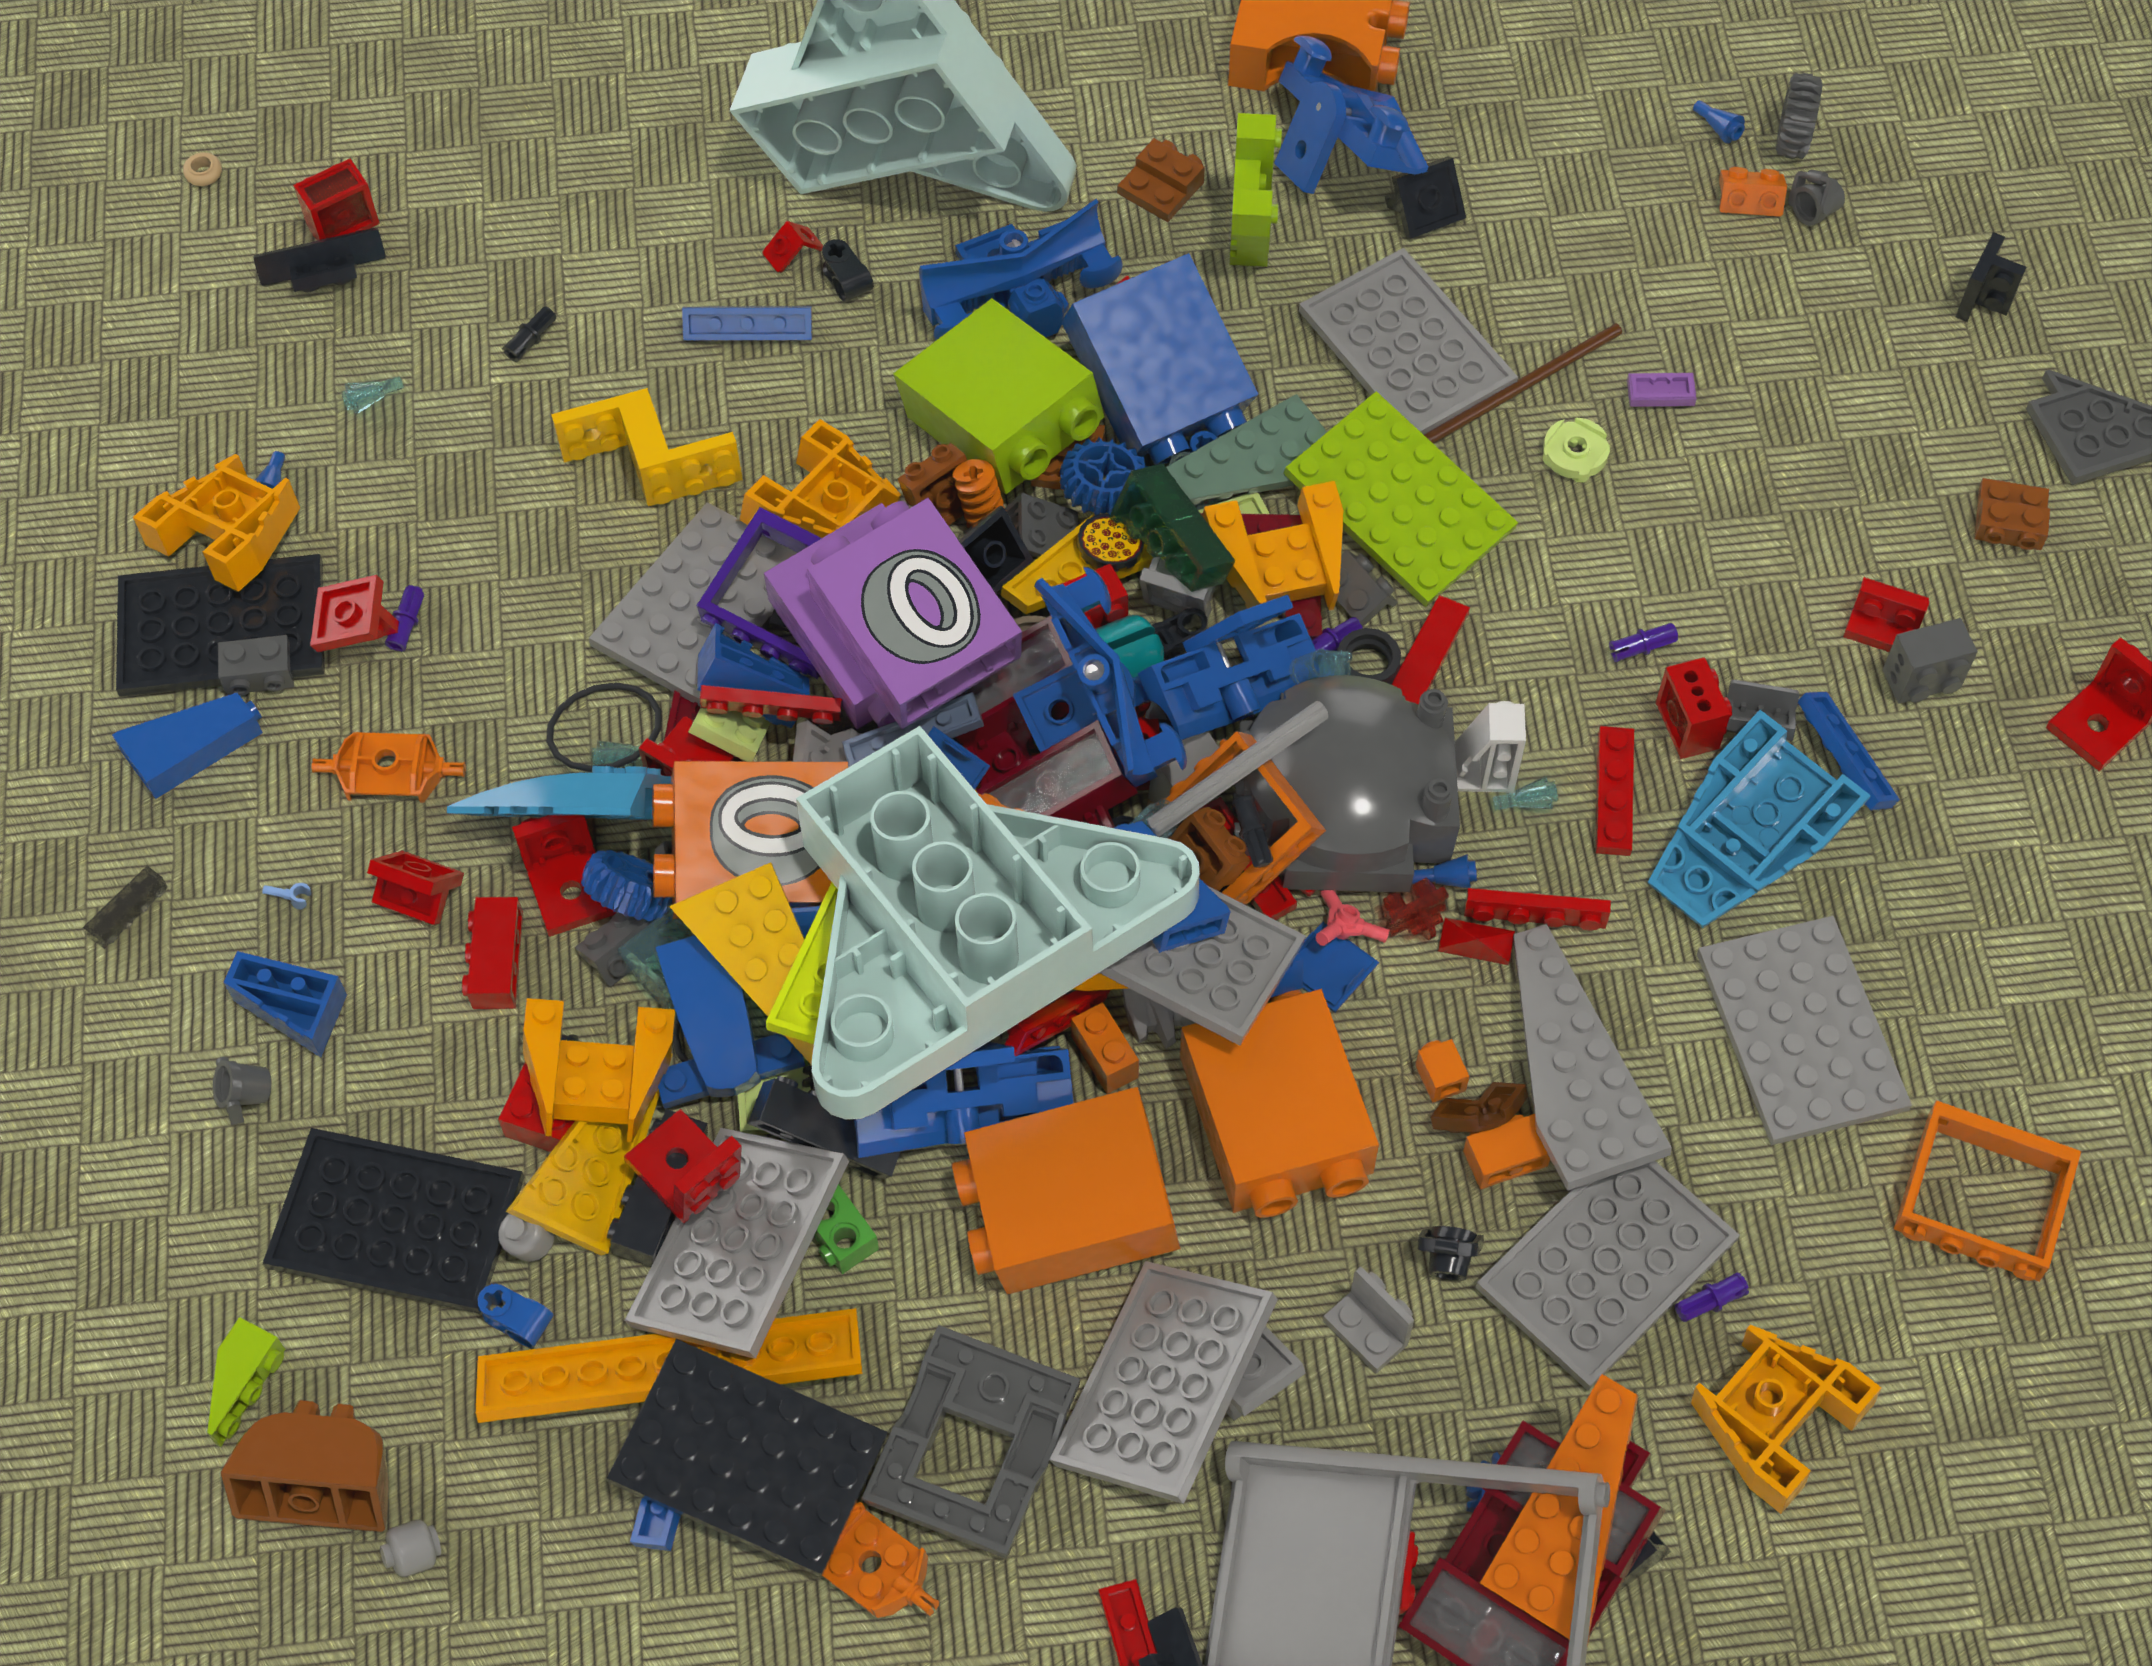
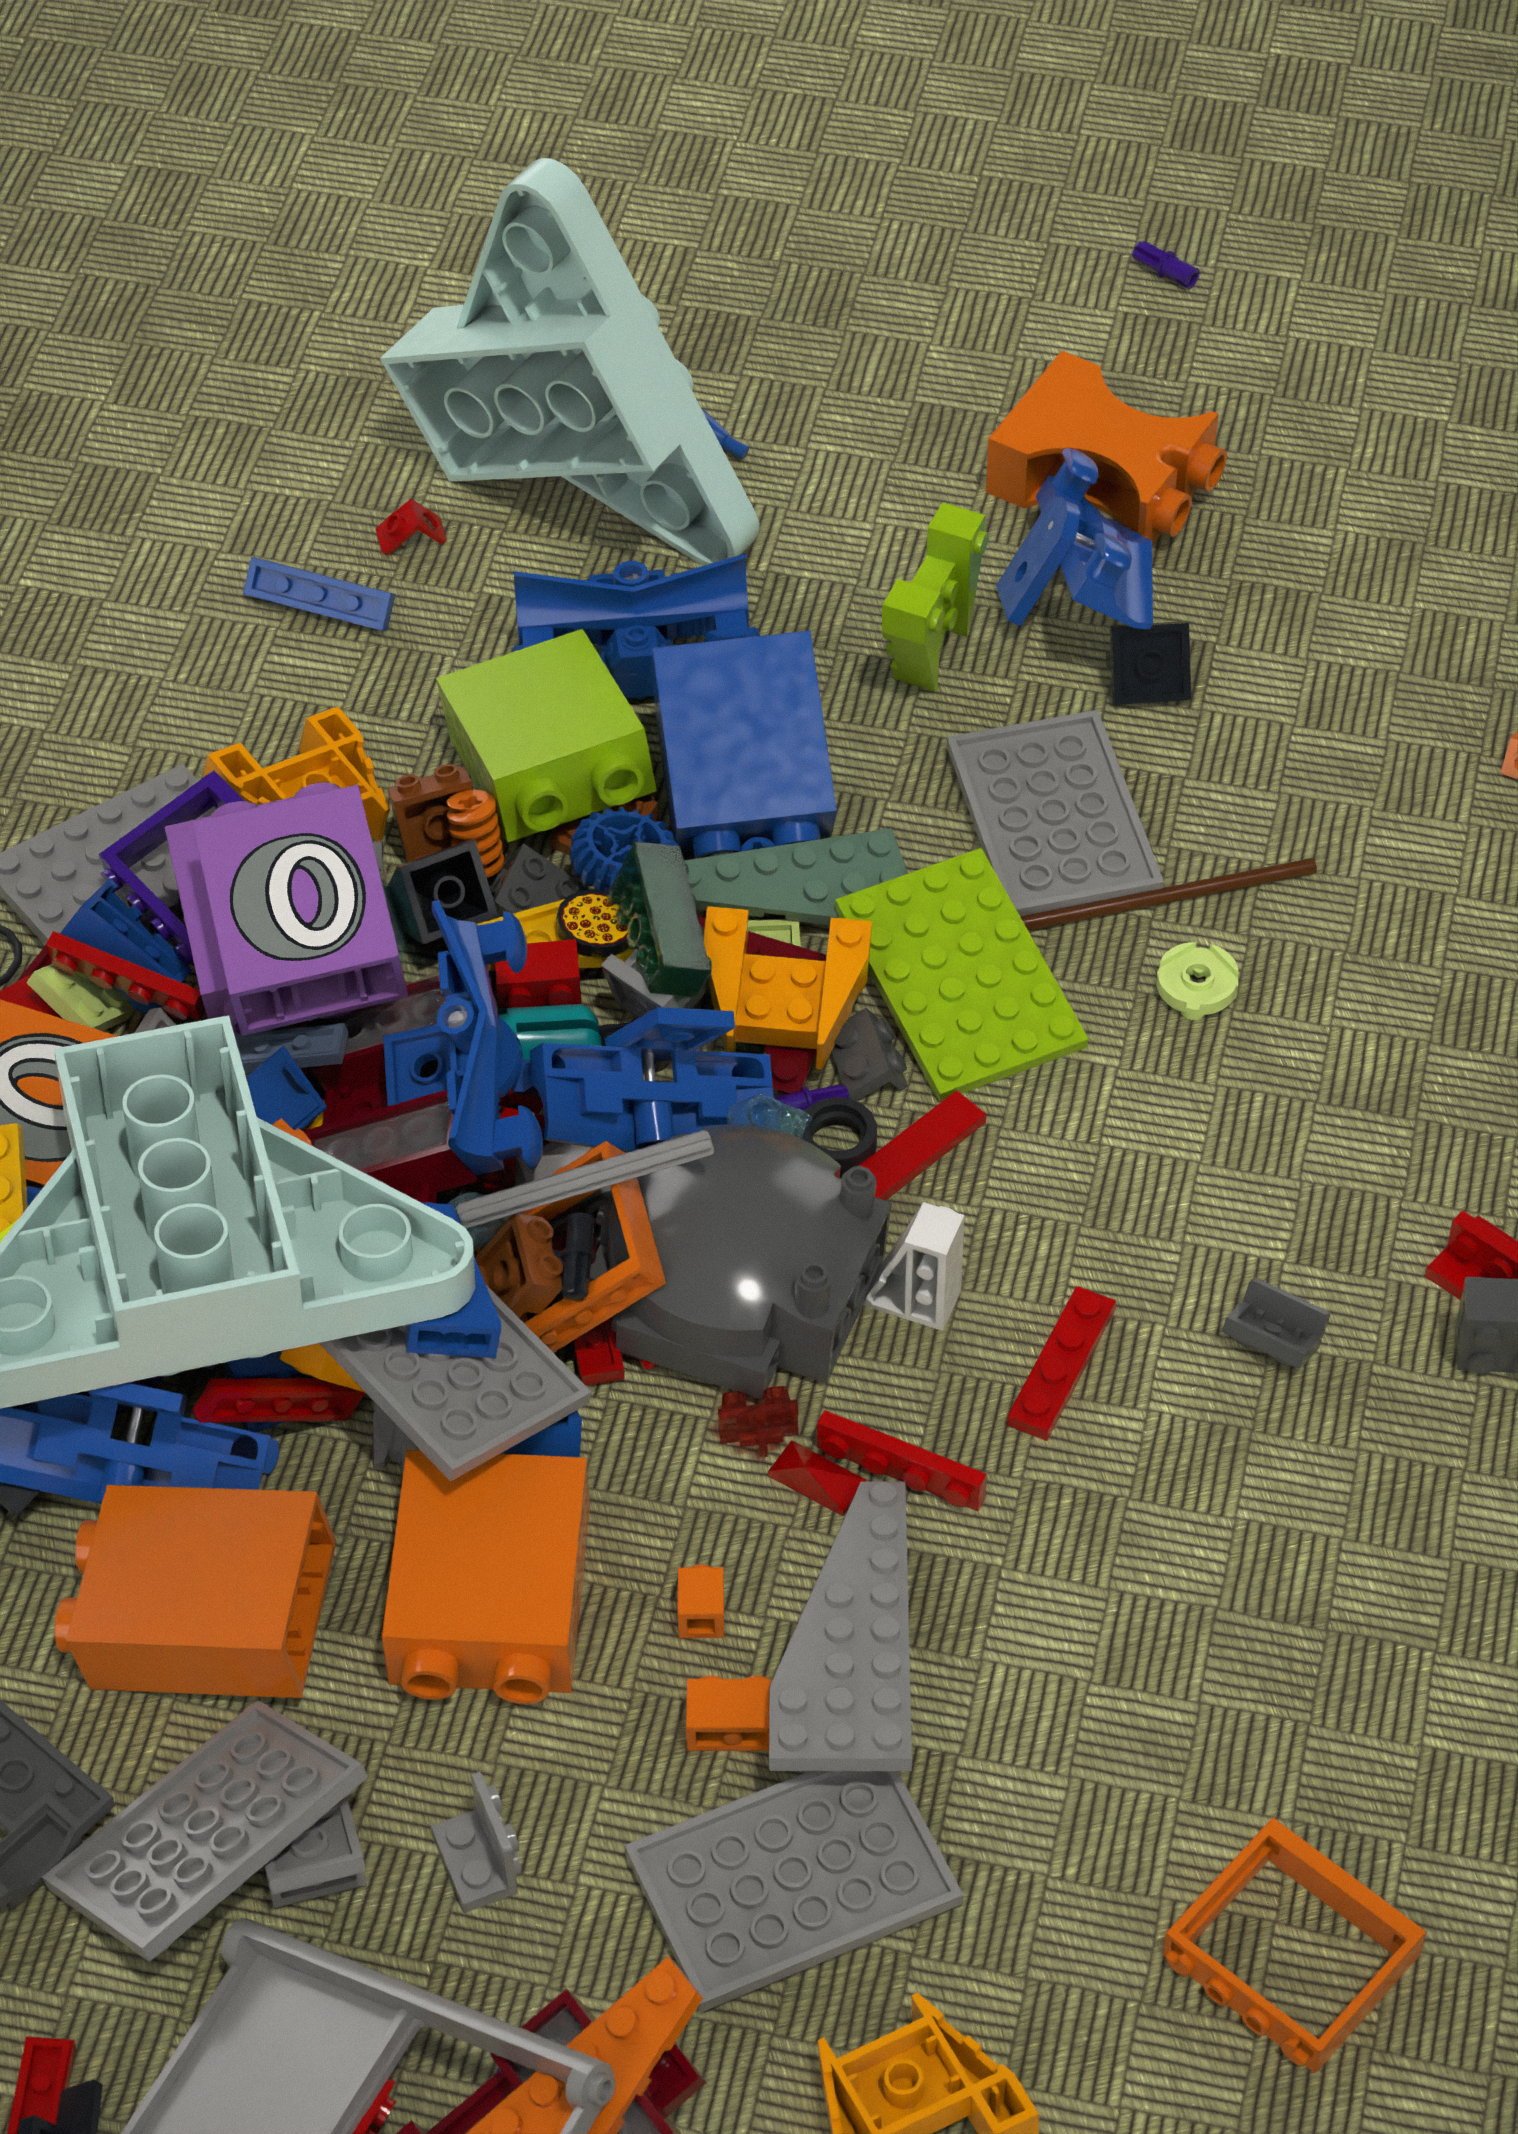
camera: 20 degrees right, 10 degrees down
(529, 334) = (81, 543): black axle -> none
(634, 422) = (137, 665): yellow bracket -> none
(845, 270) = (452, 567): black piece -> none
(1105, 1048) = (326, 1455): orange brick -> none
(1162, 179) = (857, 568): dark orange plate -> none
(1334, 968) = (631, 1452): blue piece -> none
(1346, 922) = (669, 1408): coral piece -> none
(1450, 1250) = (609, 1799): black piece -> none
(1456, 873) = (822, 1393): blue cone -> none
(1492, 1110) = (707, 1659): reddish brown plate -> none
(1534, 795) = (963, 1338): clear light blue cone -> none
(1644, 641) = (1176, 1209): dark purple axle -> none
(1661, 389) = (1331, 943): medium lavender plate -> none
(1693, 707) = (1192, 1293): red piece -> none
(1712, 1297) = (897, 1956): dark purple axle -> none
(1751, 822) = (1199, 1439): dark azure wedge -> none
(1803, 1030) = (1159, 1696): light grey plate -> none
(1847, 749) = (1363, 1400): blue plate -> none

